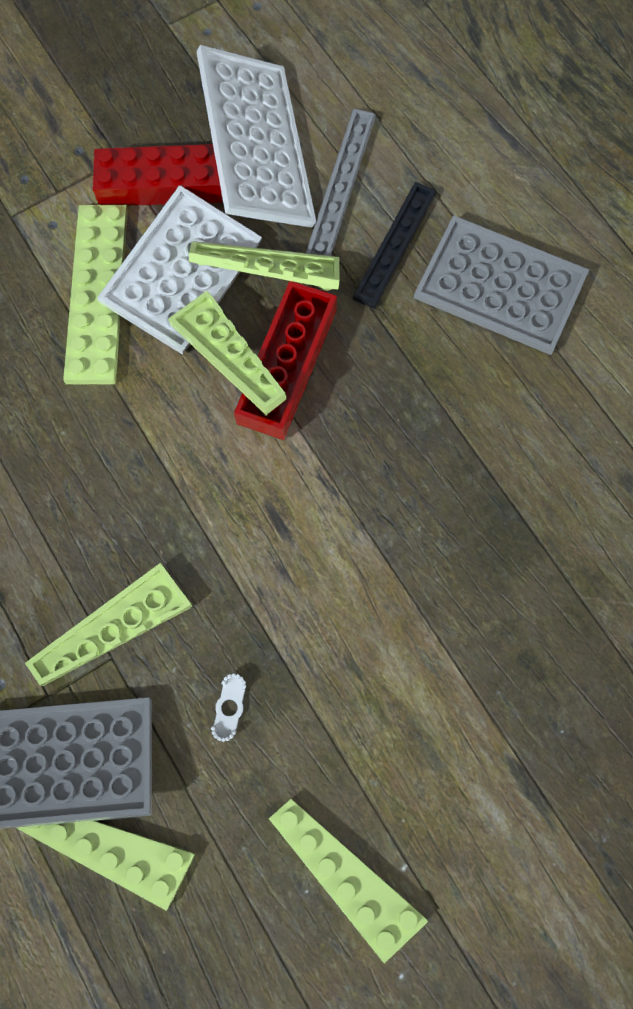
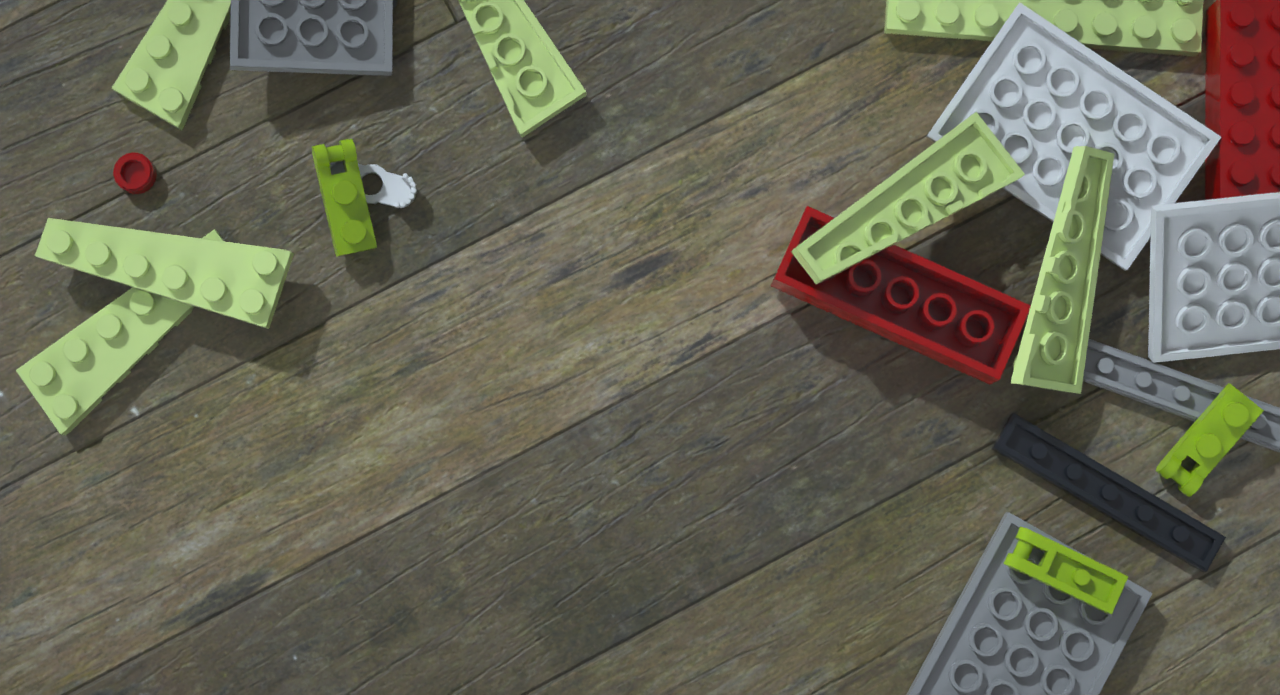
camera: 90 degrees right, 10 degrees up
(229, 886) = (134, 173): none -> red tile
(241, 723) = (344, 198): none -> lime plate
(302, 824) = (200, 272): none -> yellowish green wing
(359, 190) = (1209, 439): none -> lime plate
(447, 257) = (1067, 571): none -> lime plate

